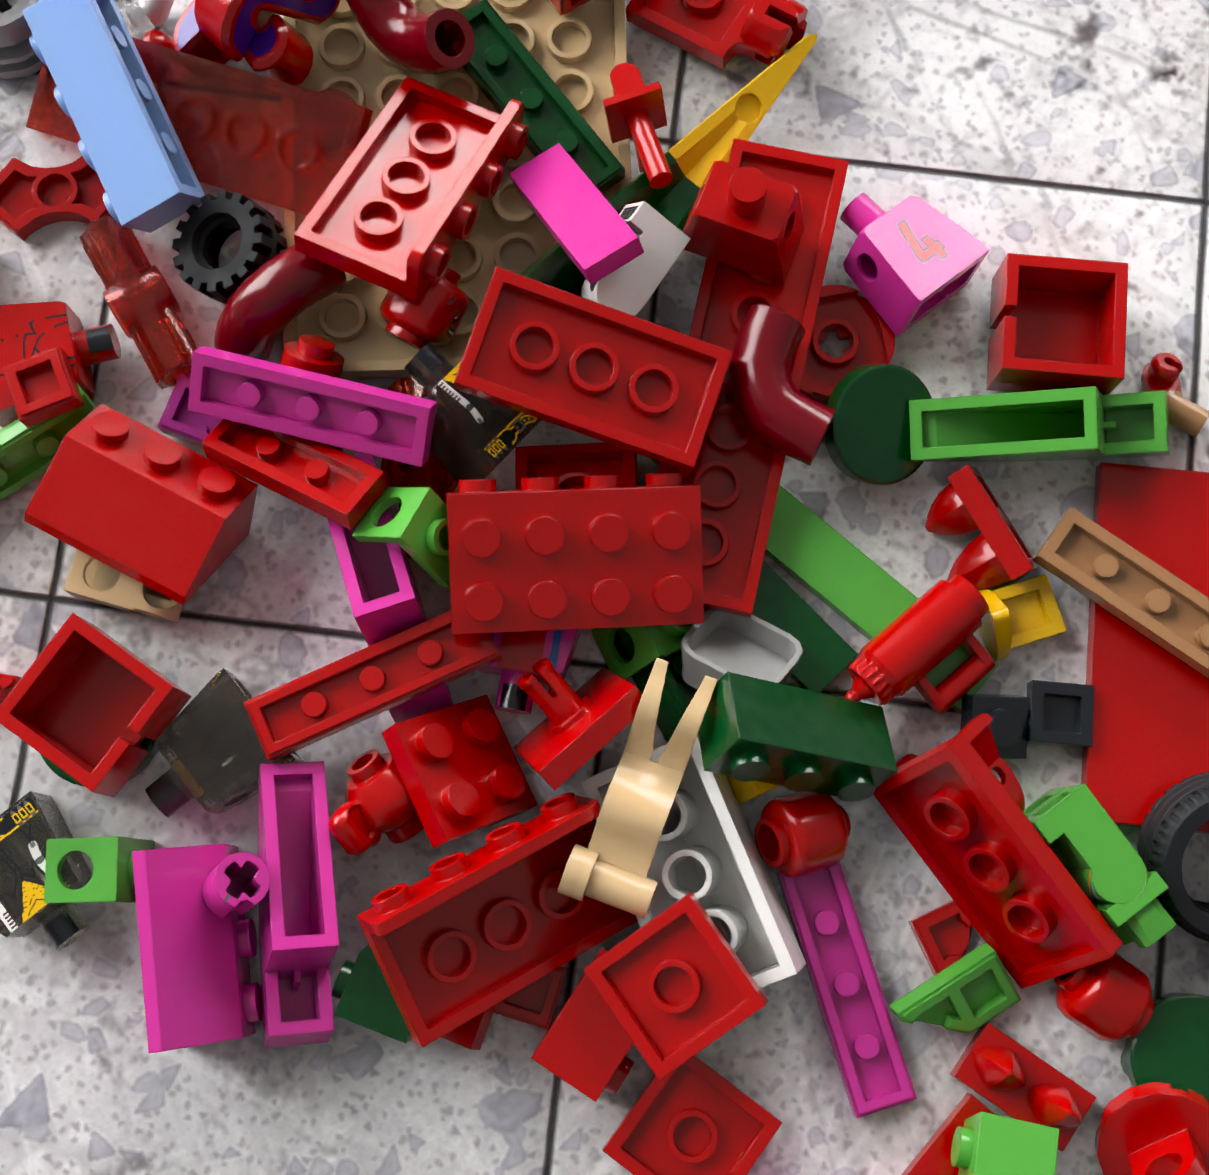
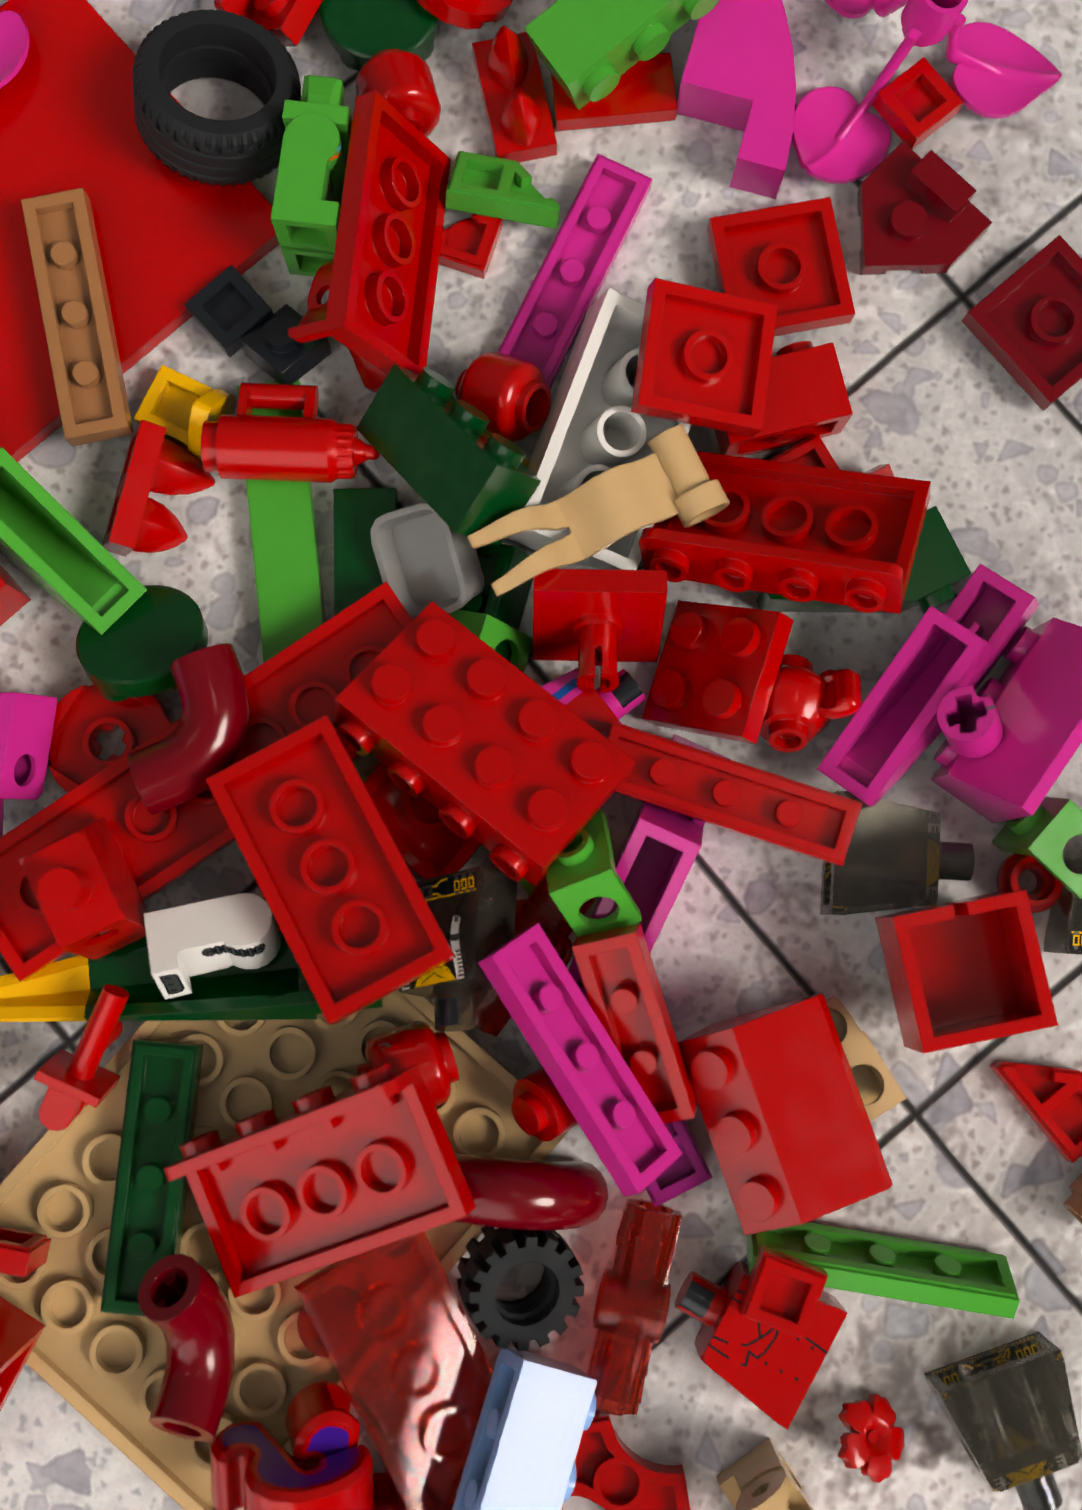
camera: 140 degrees left, 5 degrees up
(92, 815) = (1047, 887): none -> red plate
(576, 214) = (215, 1022): tile -> none

